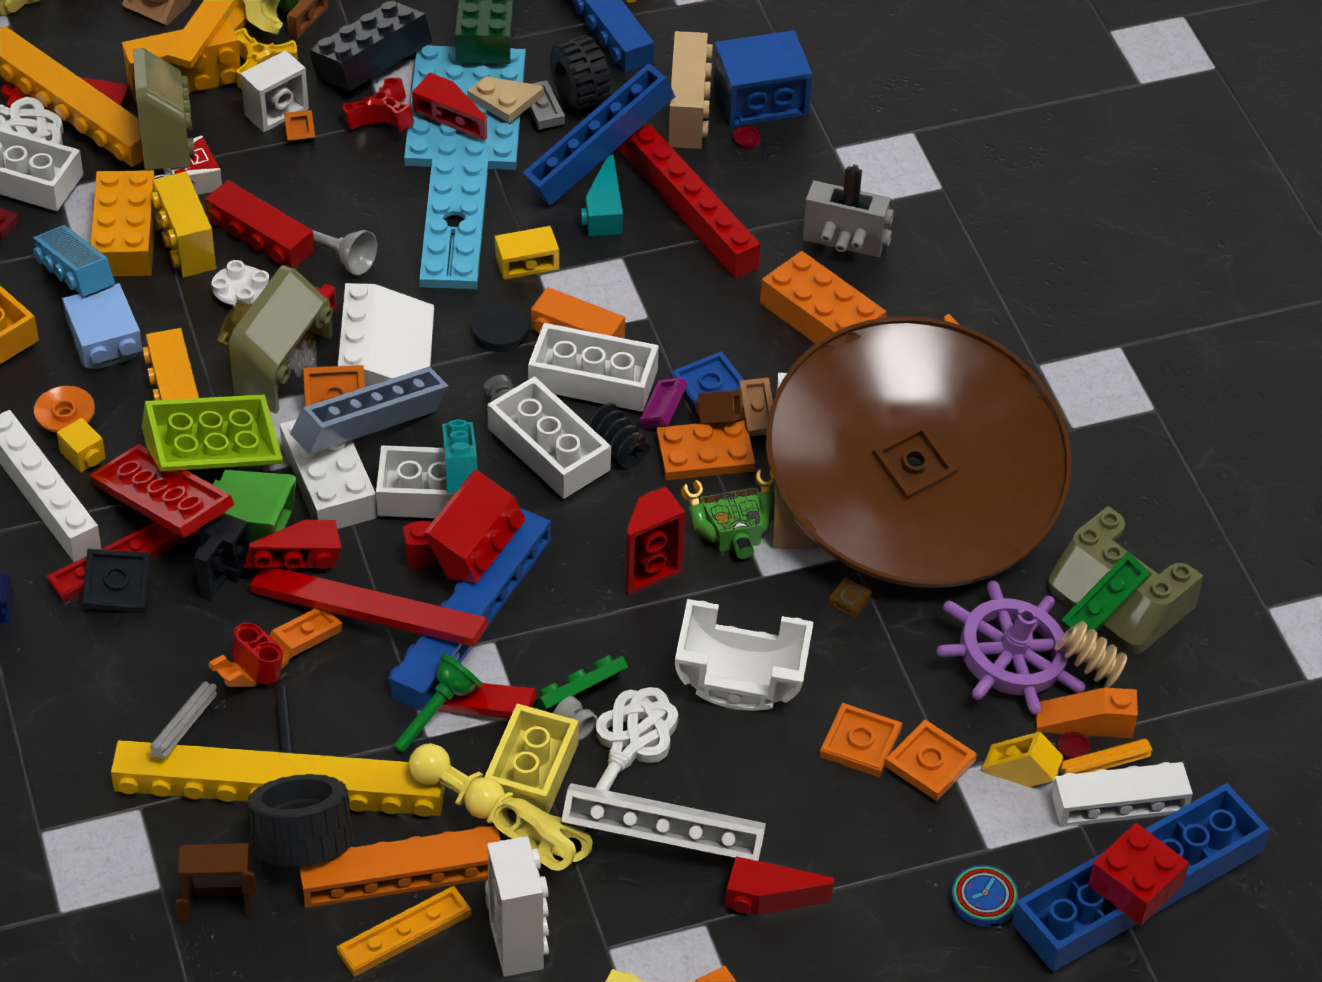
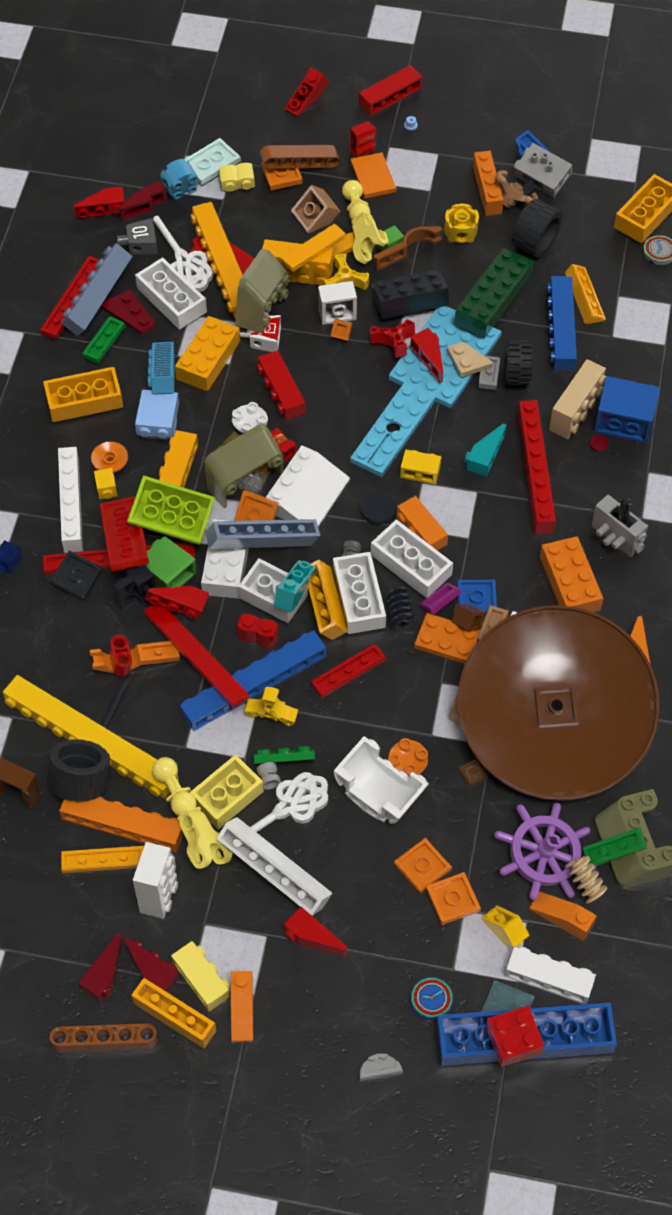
camera: 30 degrees right, 10 degrees up
(183, 224) = (236, 369): yellow brick -> none
(183, 720) = (58, 678): light grey axle -> none
(355, 250) = (323, 424): light grey piece -> none
(453, 680) = (212, 722): green piece -> none
(473, 528) = (274, 634): red slope -> none
(491, 701) = (227, 740): red tile -> none
(513, 468) = (326, 602): none -> light orange brick
(522, 628) = (271, 707): none -> yellow piece
(594, 545) = (348, 671): none -> red tile
(599, 134) = (501, 409): blue brick -> none
(654, 540) = (370, 687): red slope -> none
(732, 518) = (432, 691): bright green torso -> none
(753, 611) = (408, 757): none -> orange dish
(1073, 745) = (544, 929): dark red piece -> none
(1079, 847) = (506, 998): none -> clear light blue wing
(1107, 758) = (557, 947): light orange axle -> none

